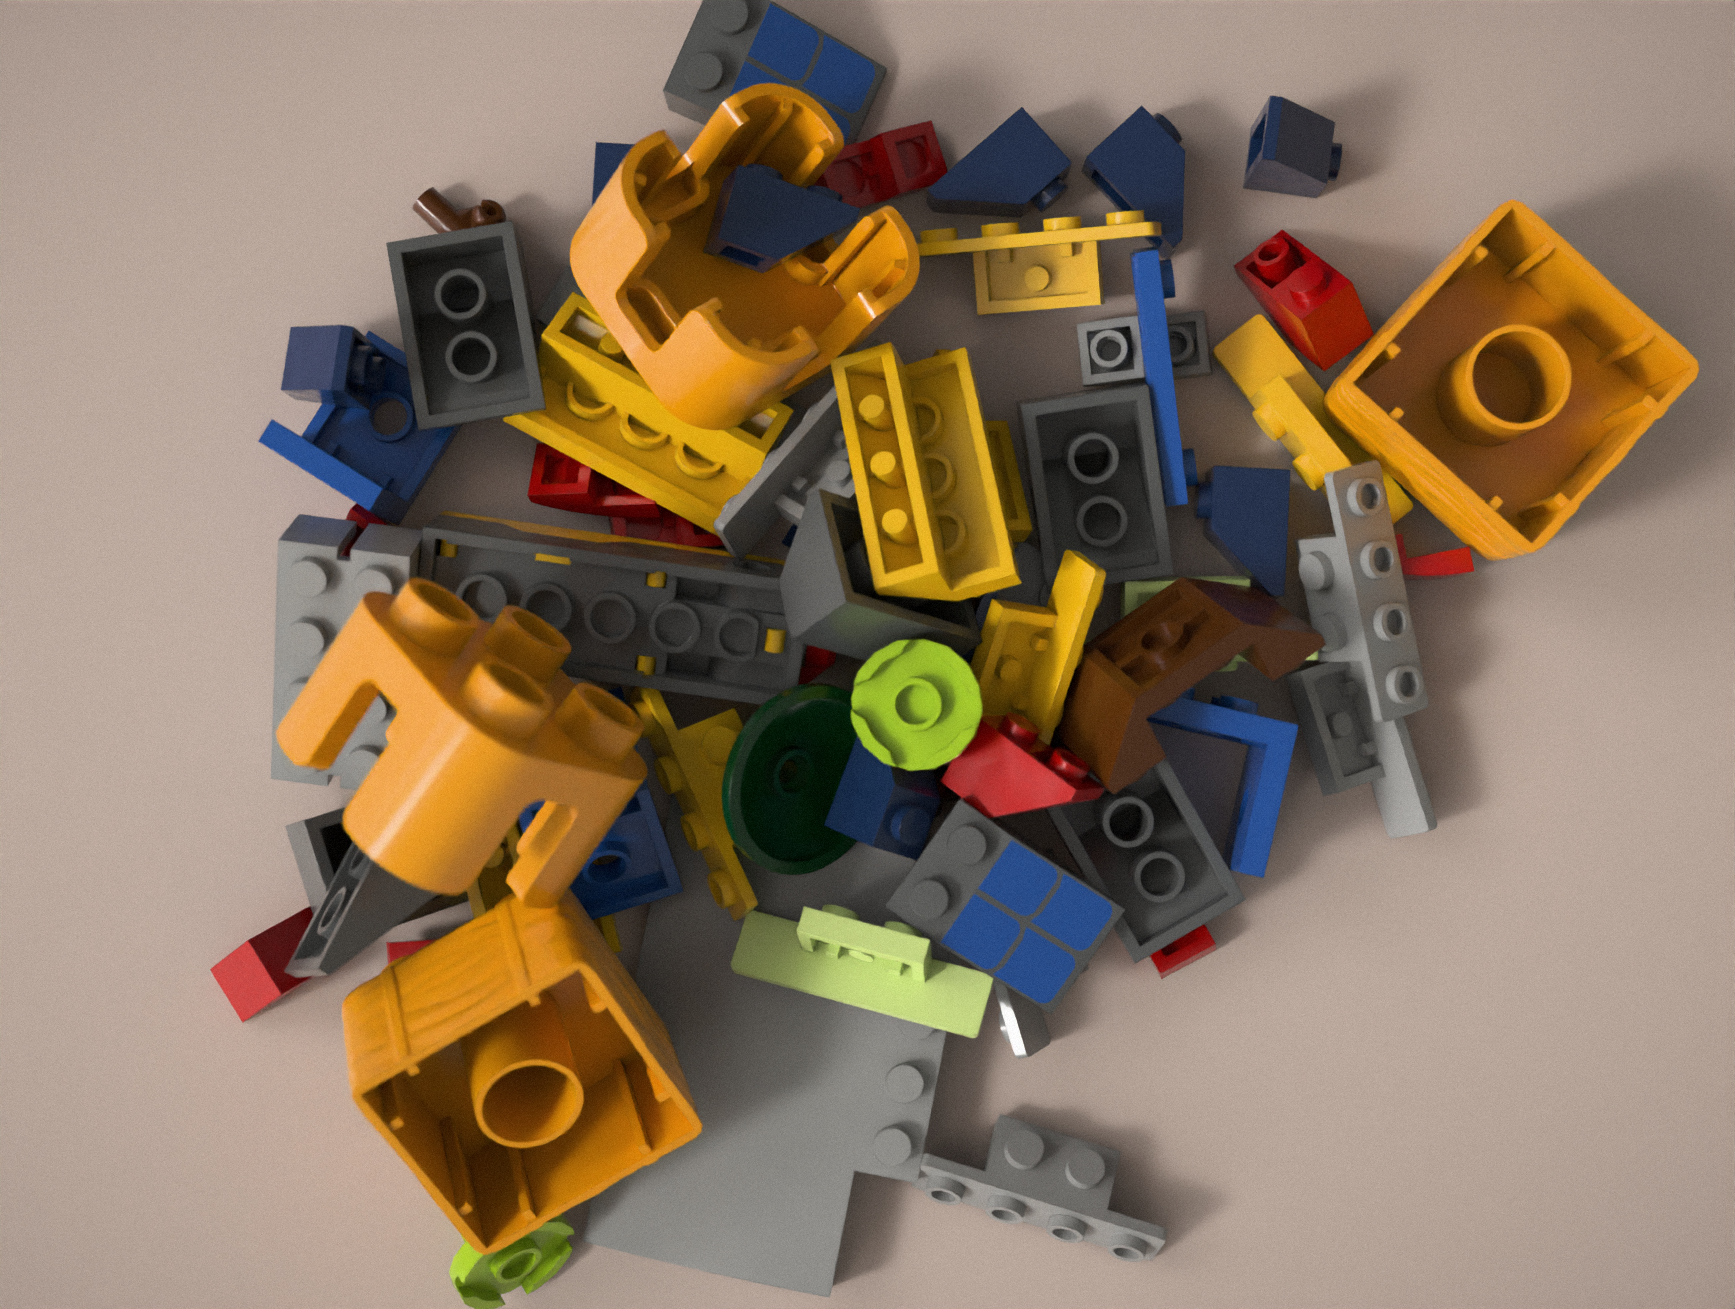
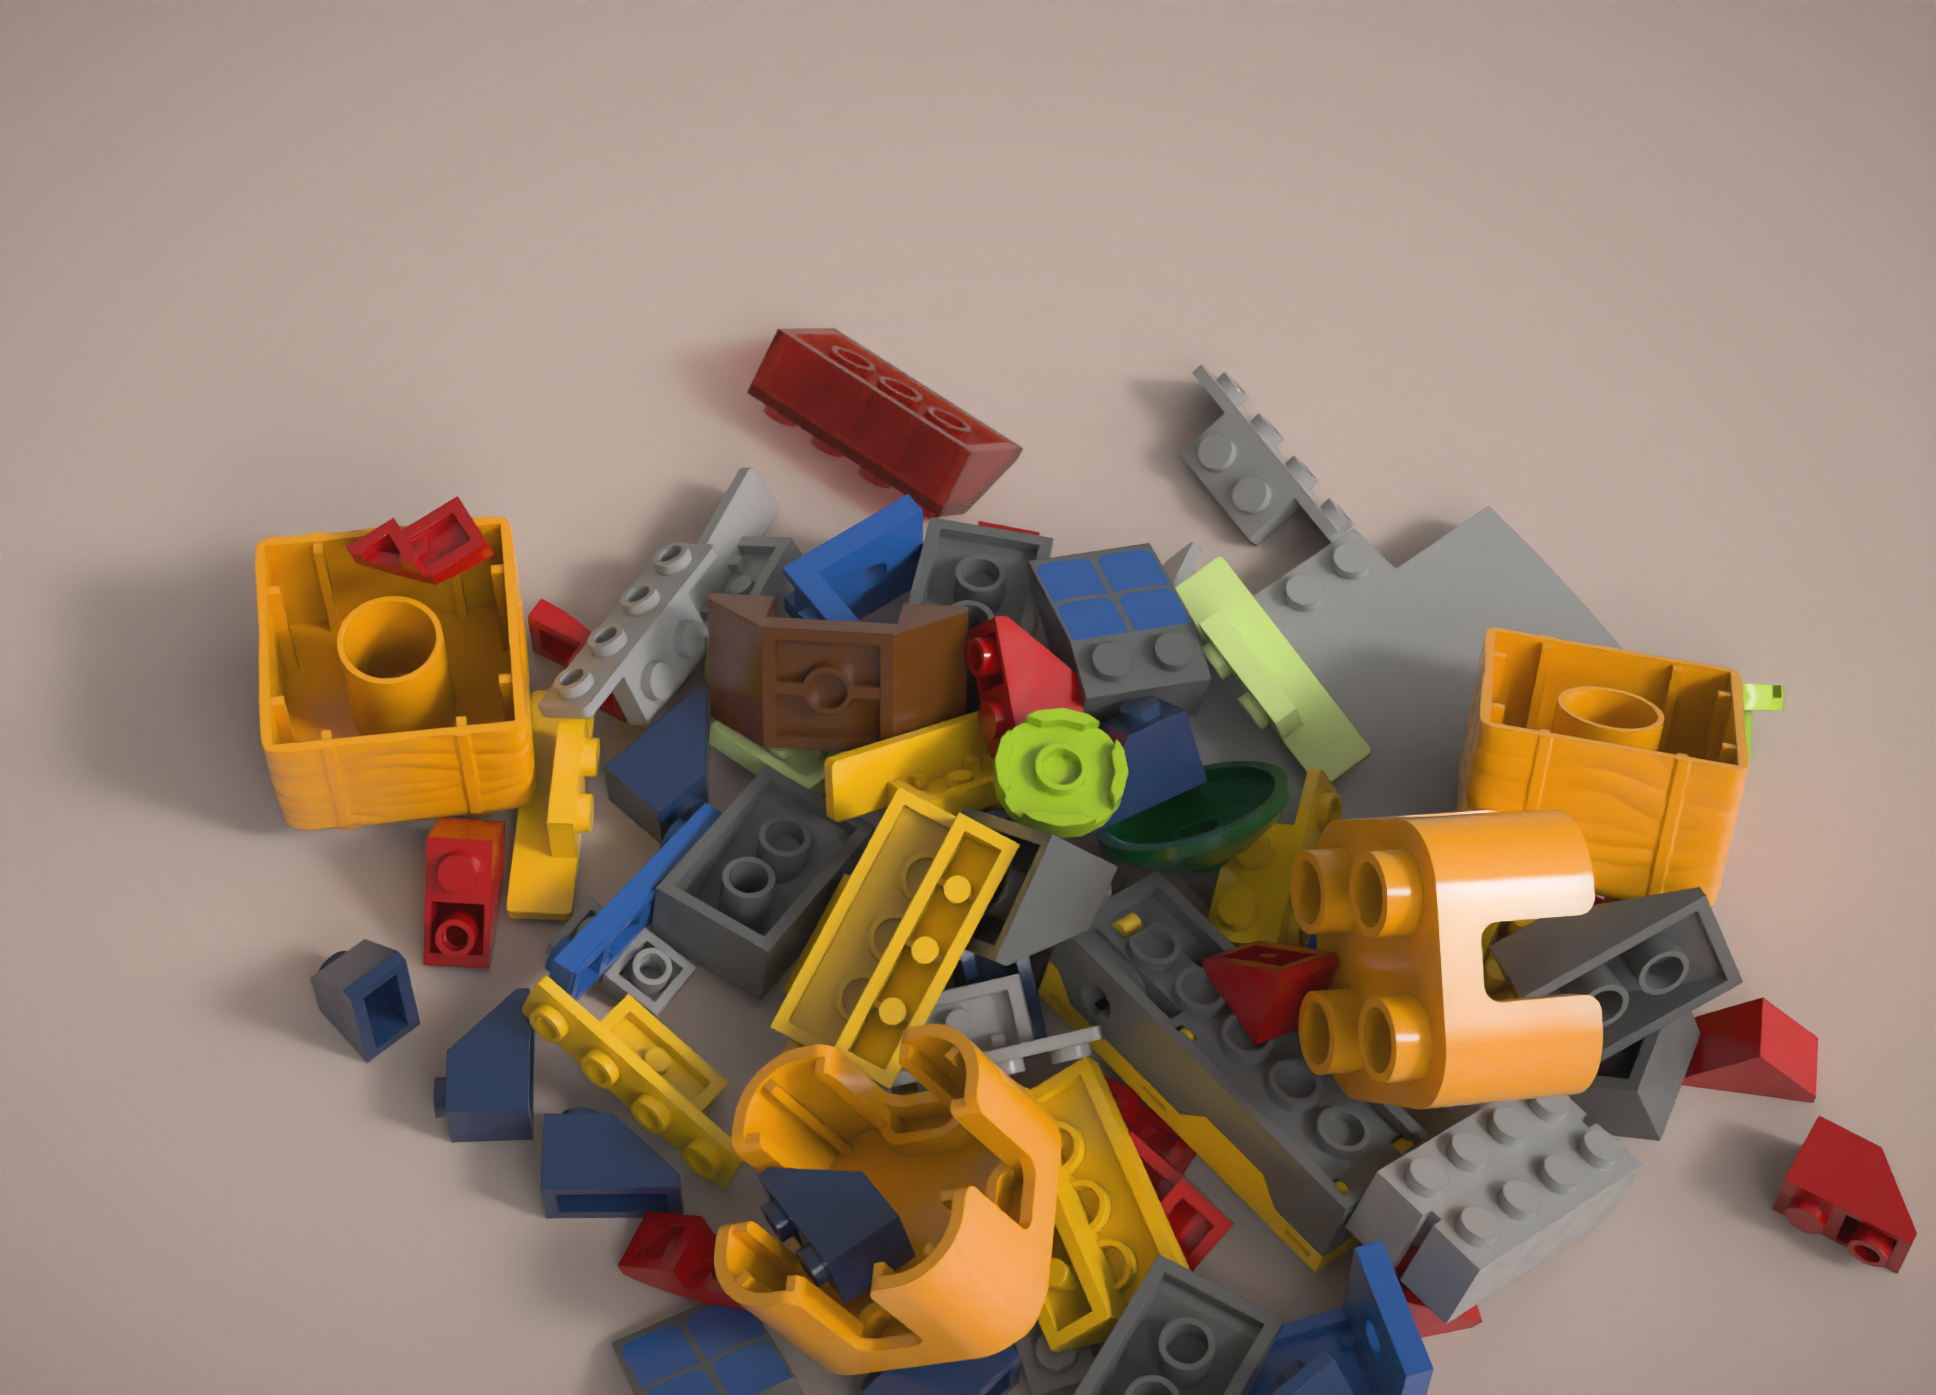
camera: 140 degrees left, 30 degrees down
(127, 898) = (1849, 1195): none -> red slope
(629, 664) = (1268, 983): none -> red slope
(1377, 980) = (880, 420): none -> clear red slope
(1561, 467) = (428, 549): none -> red slope

